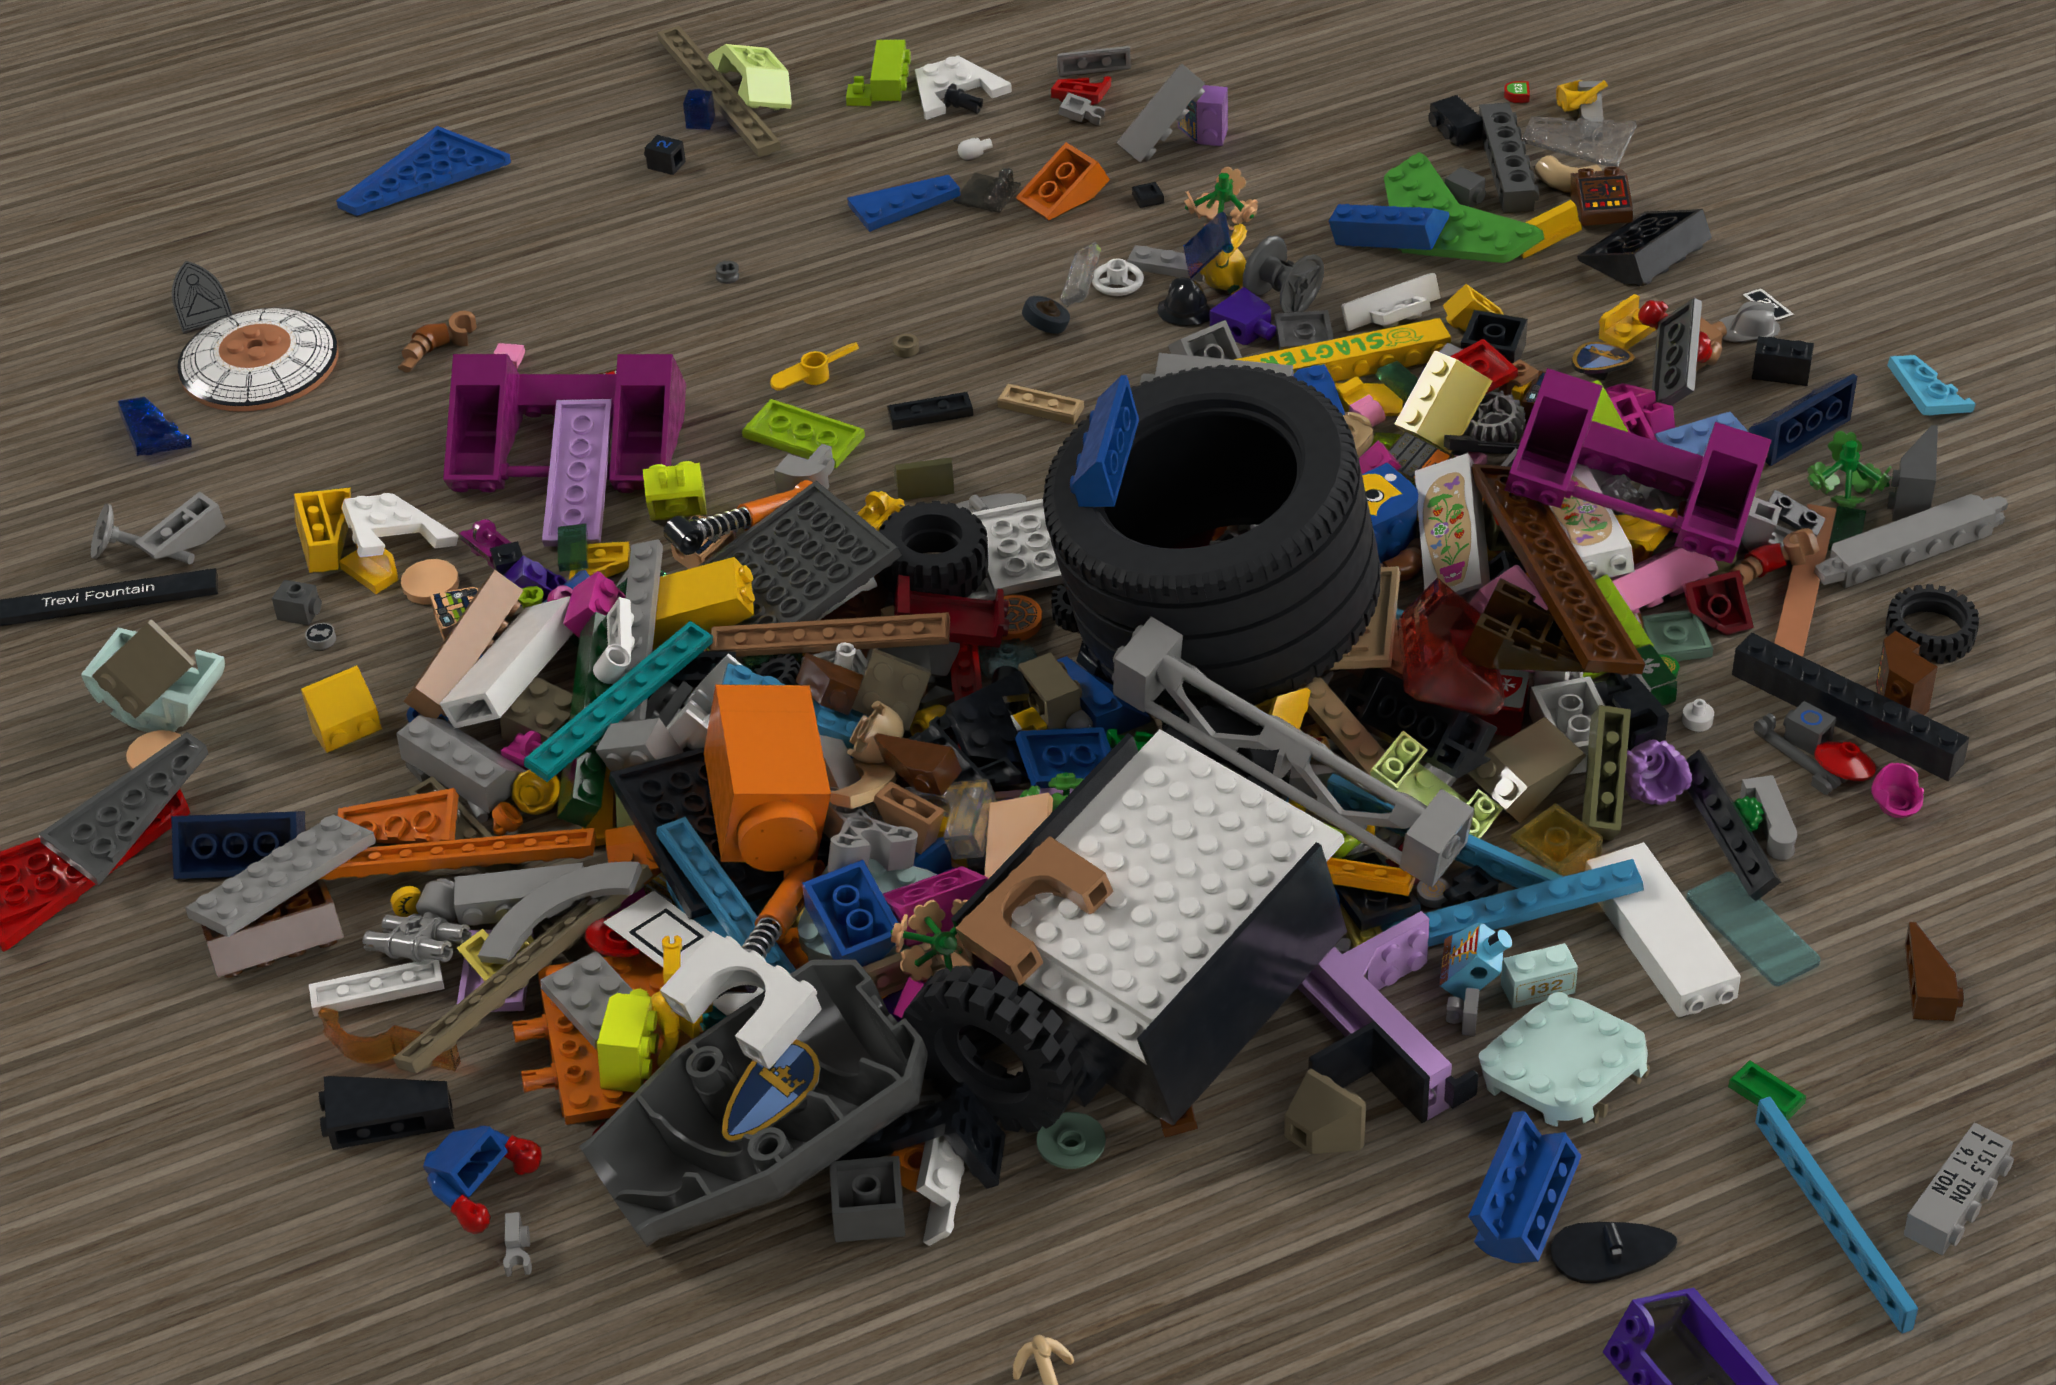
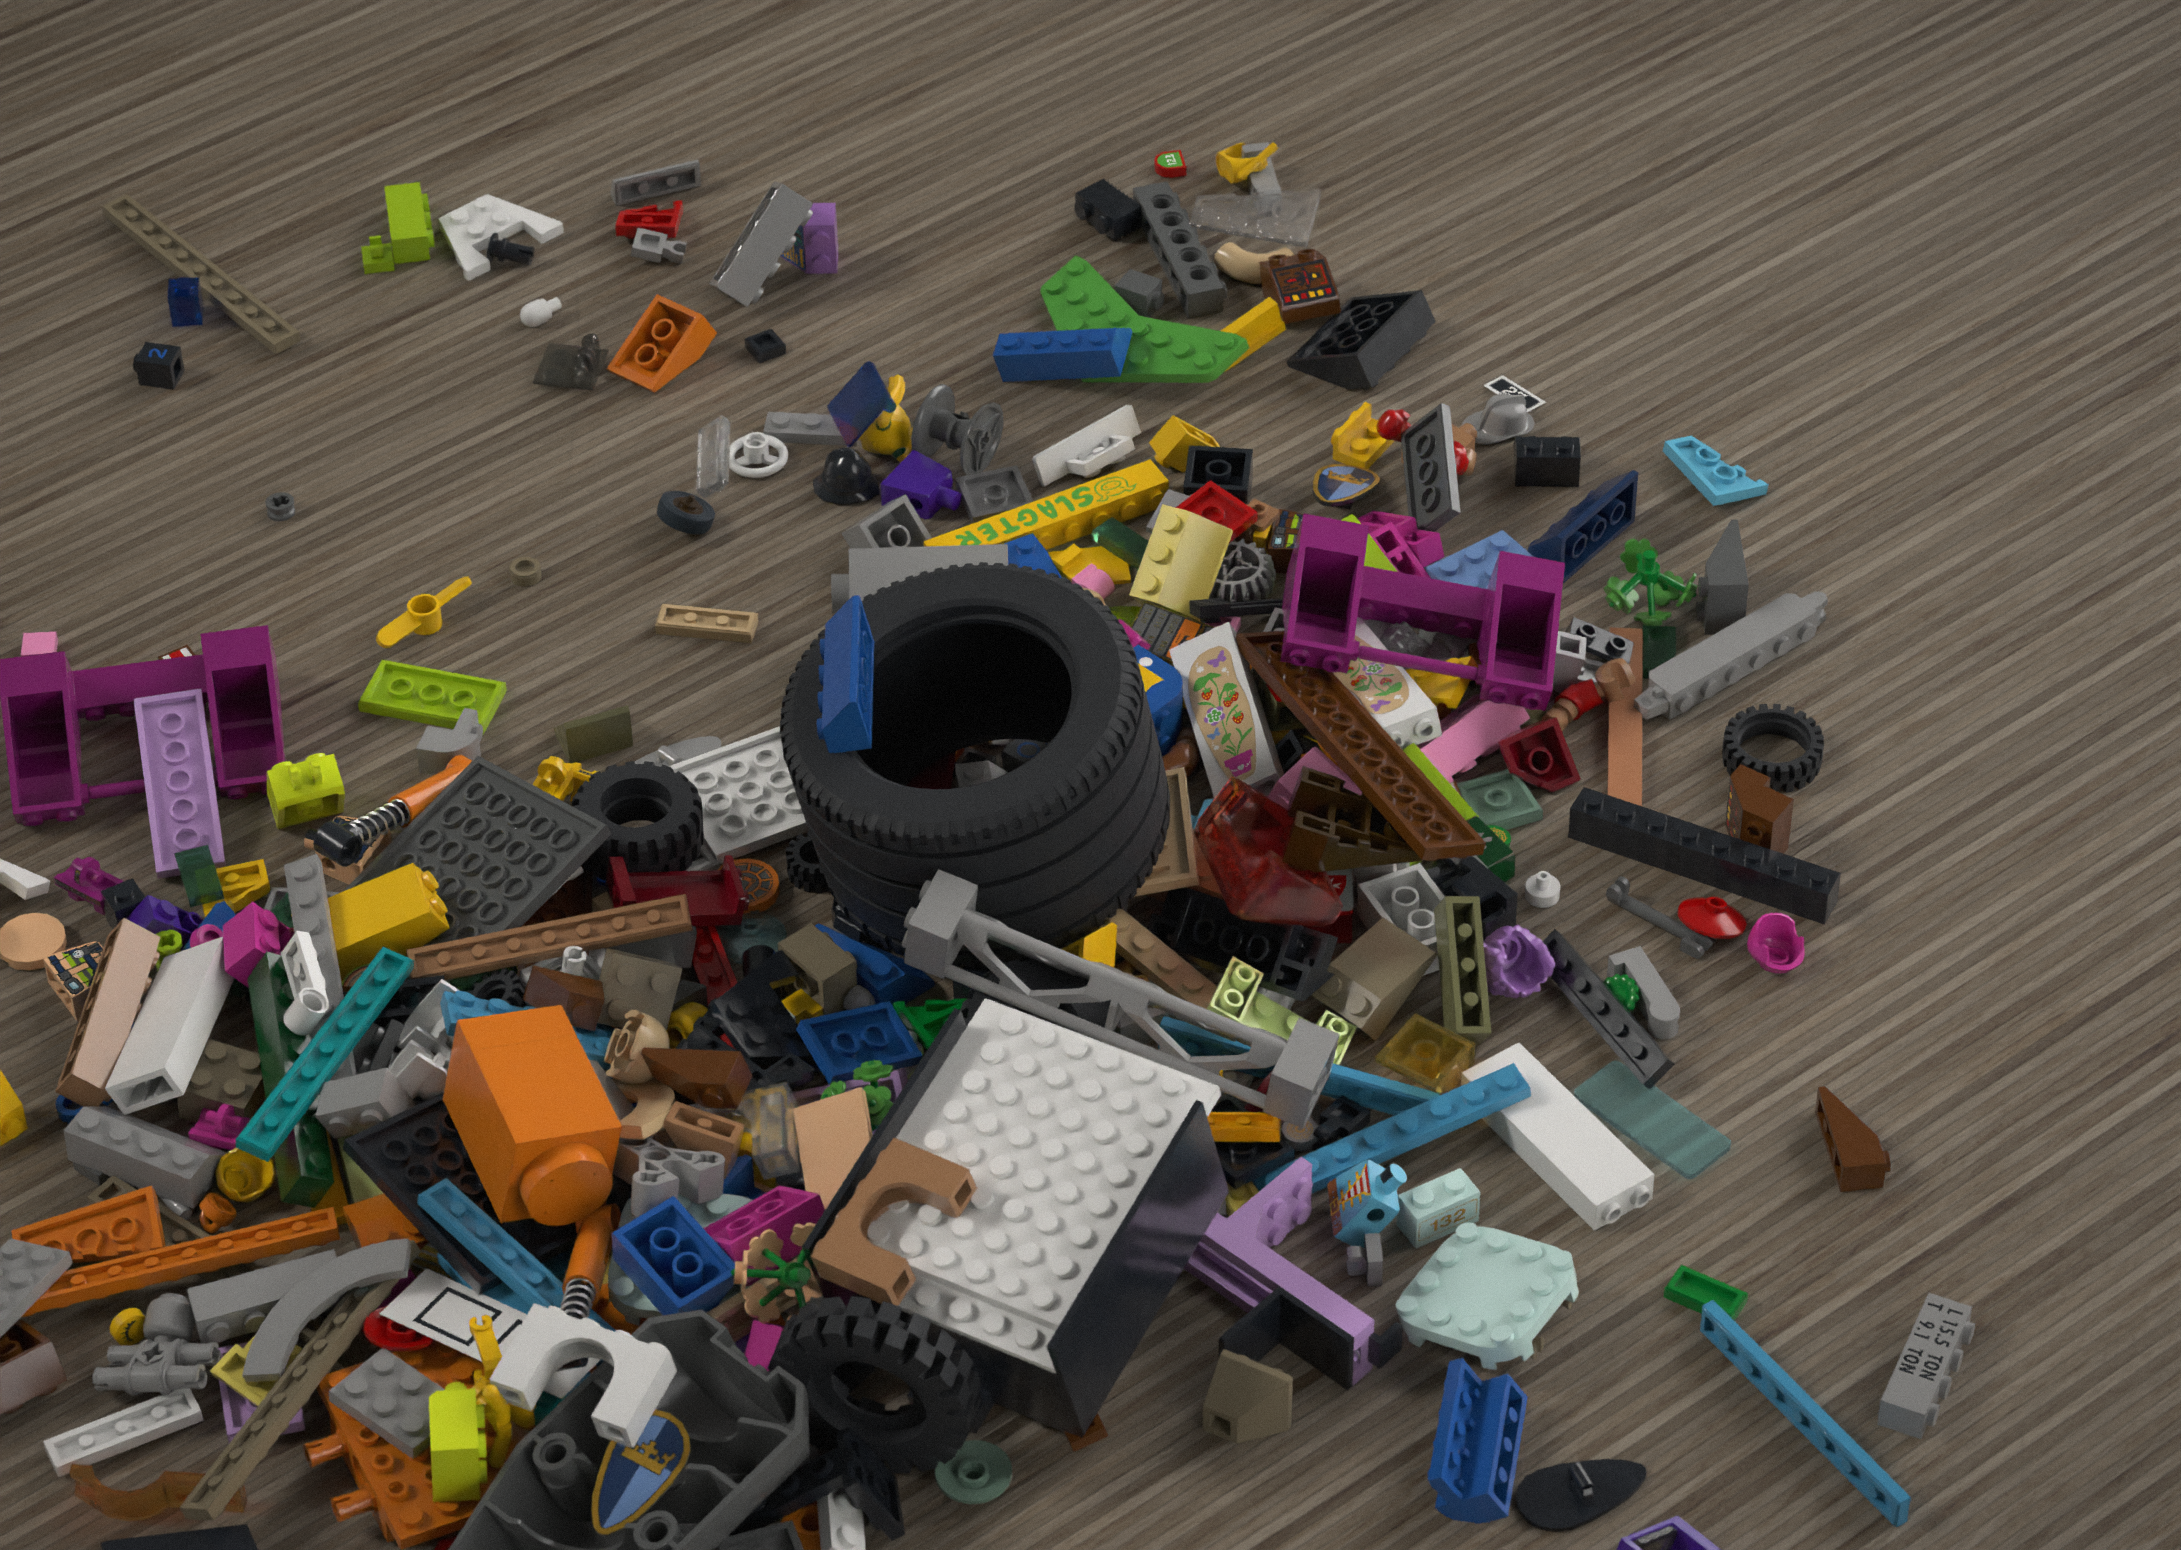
camera: 15 degrees left, 0 degrees up
(764, 76) = (259, 251): yellowish green slope -> none
(899, 202) = (464, 393): blue wing -> none
(930, 410) = (577, 648): black tile -> none
(1227, 186) = (864, 323): light nougat plant -> none
(1808, 727) = (1665, 886): dark grey brick -> none

